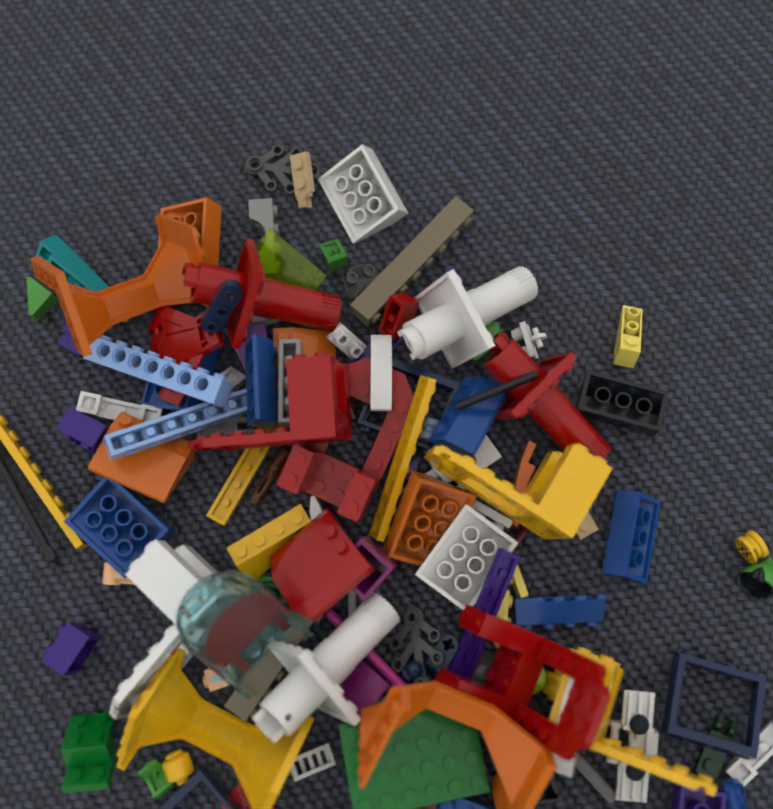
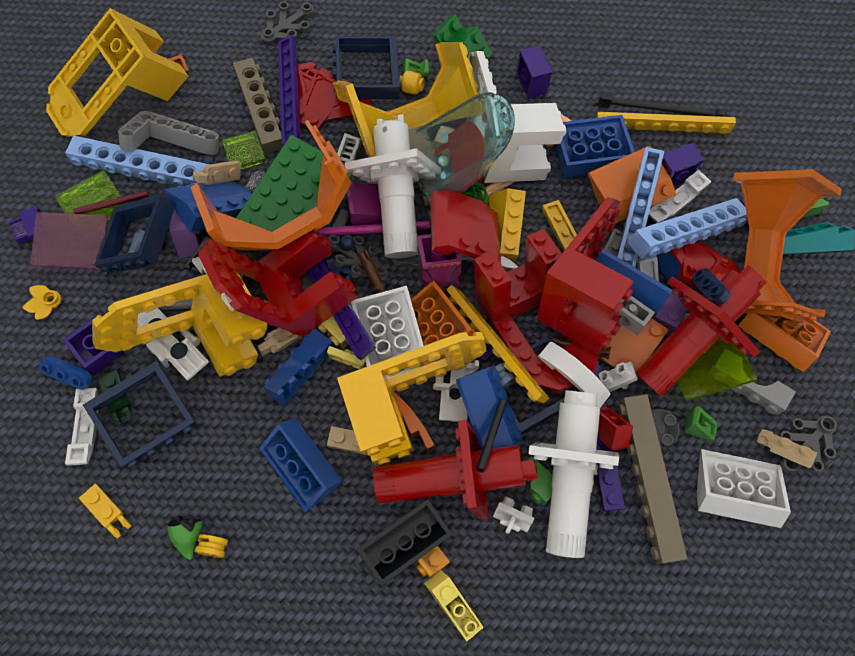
camera: 125 degrees right, 10 degrees down
(428, 606) = (371, 271): none -> reddish brown pin
(615, 371) = (432, 562): none -> light orange bracket

